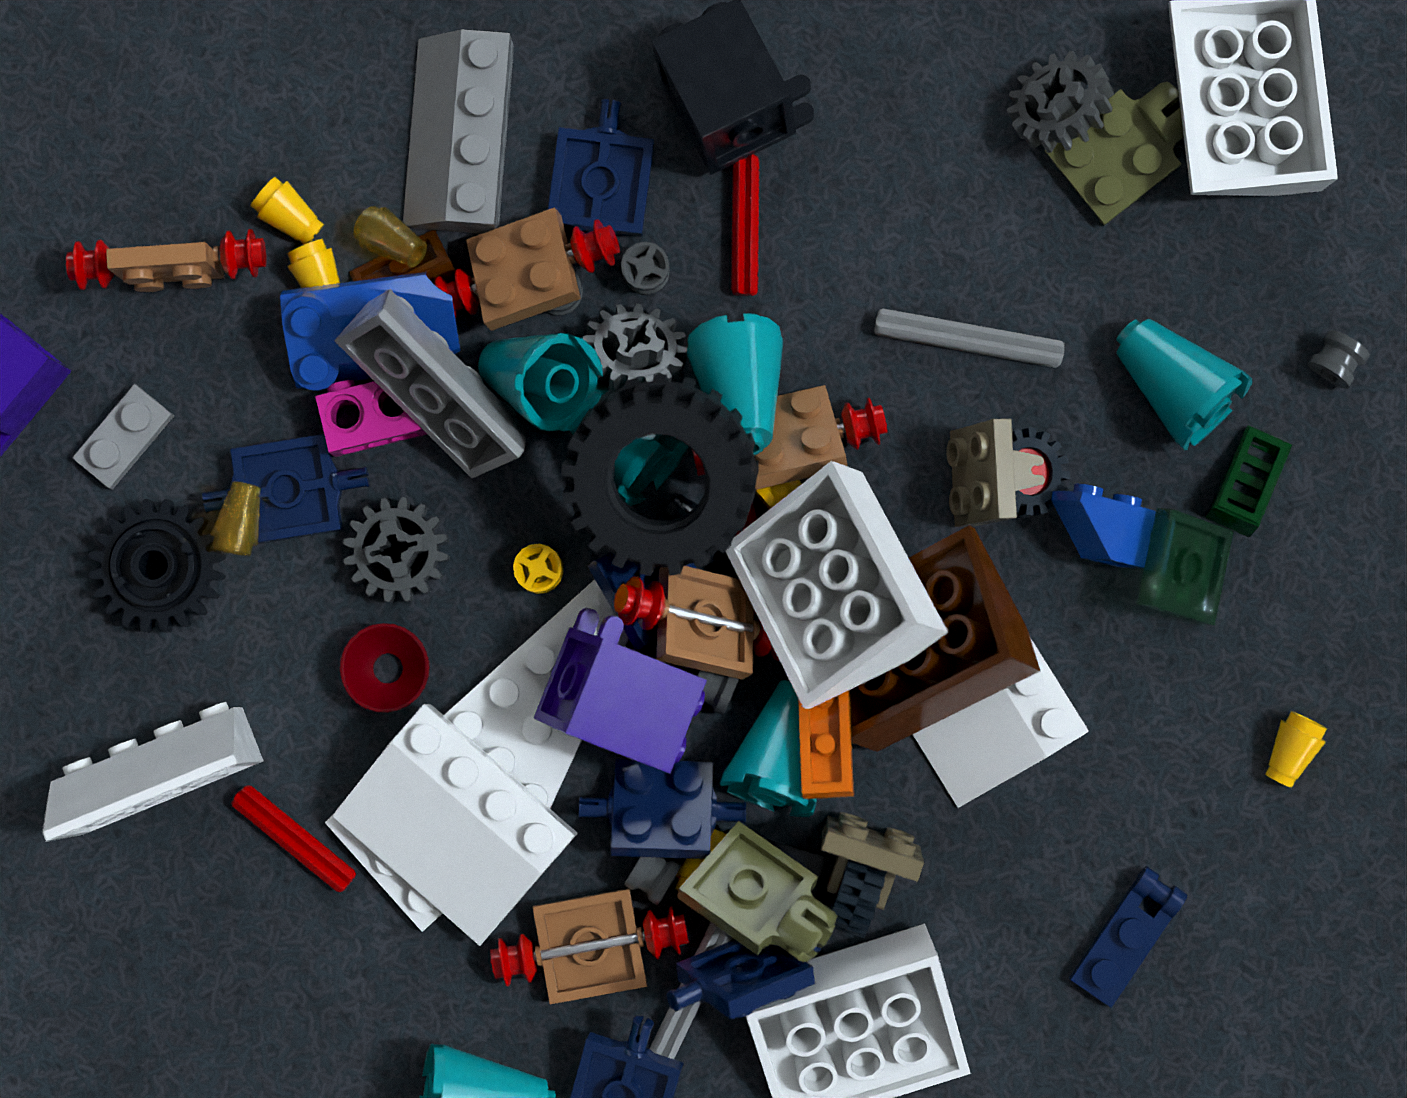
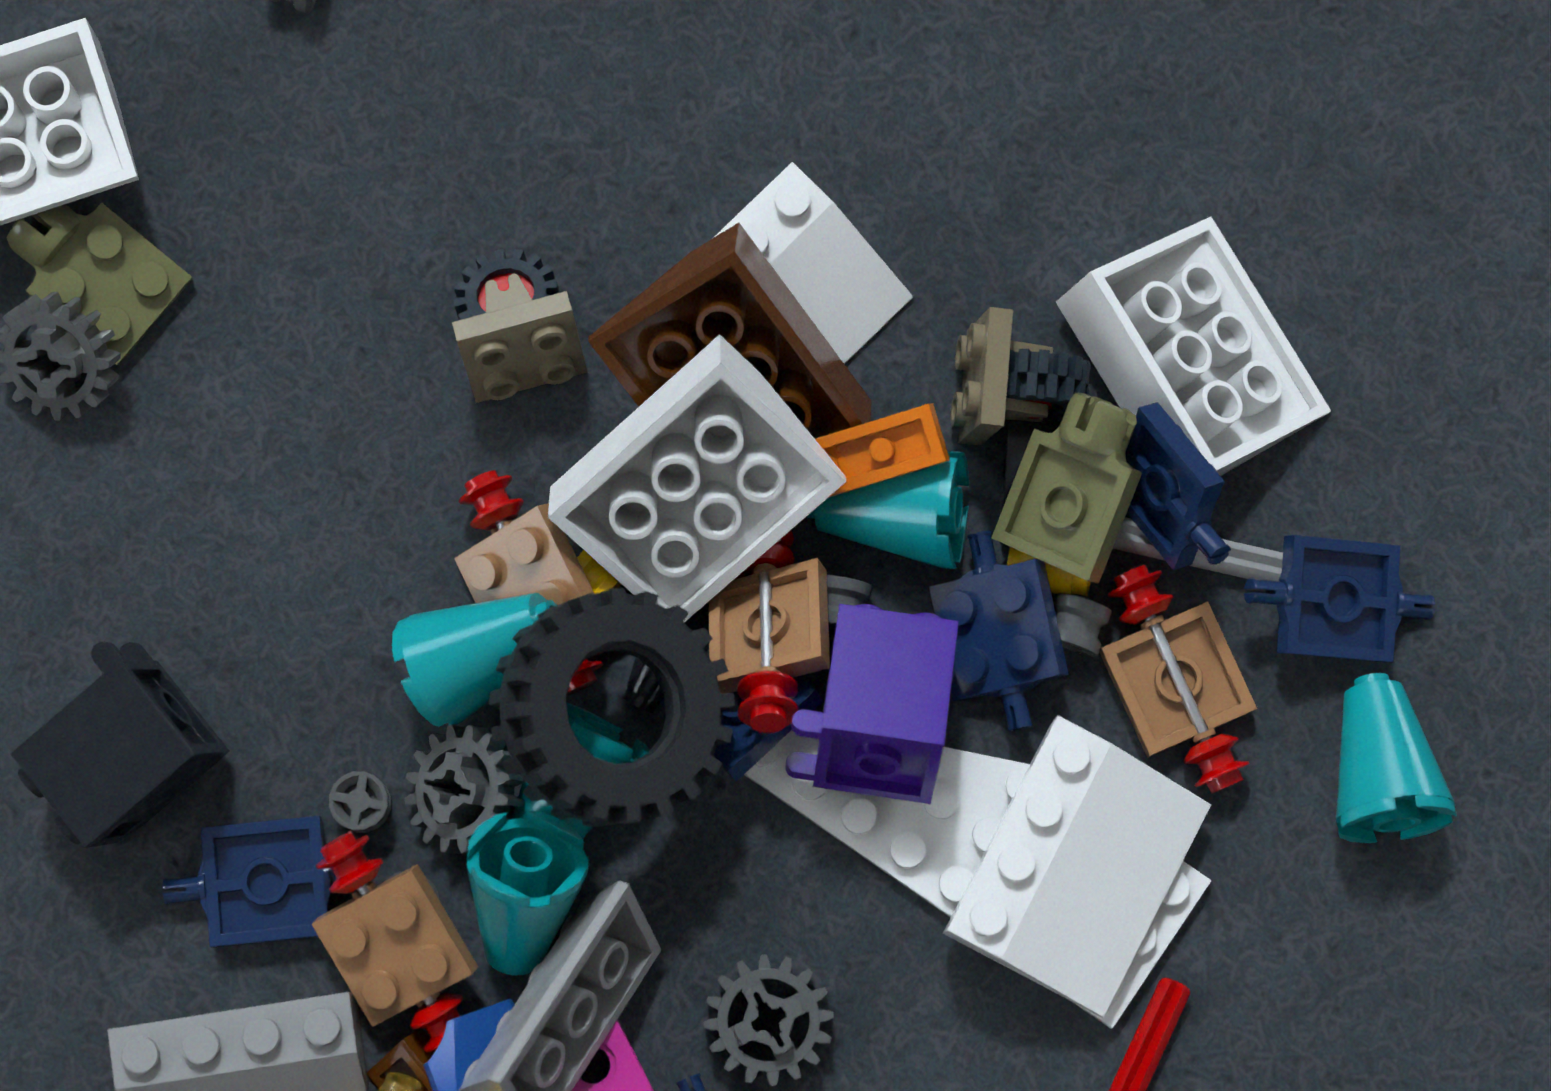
camera: 110 degrees left, 5 degrees down
(359, 661) = (946, 997): dark red piece -> none
(532, 565) = (753, 835): yellow wheel -> none
(745, 226) = (283, 696): red axle -> none
(969, 338) = (360, 404): light grey axle -> none
(1106, 528) = (552, 193): blue slope -> none
(1127, 938) = (1013, 75): dark blue plate -> none
(1180, 380) = (357, 150): teal cone -> none
(1185, 566) = (575, 97): clear green plate -> none
(1233, 516) = (504, 59): dark green slope -> none

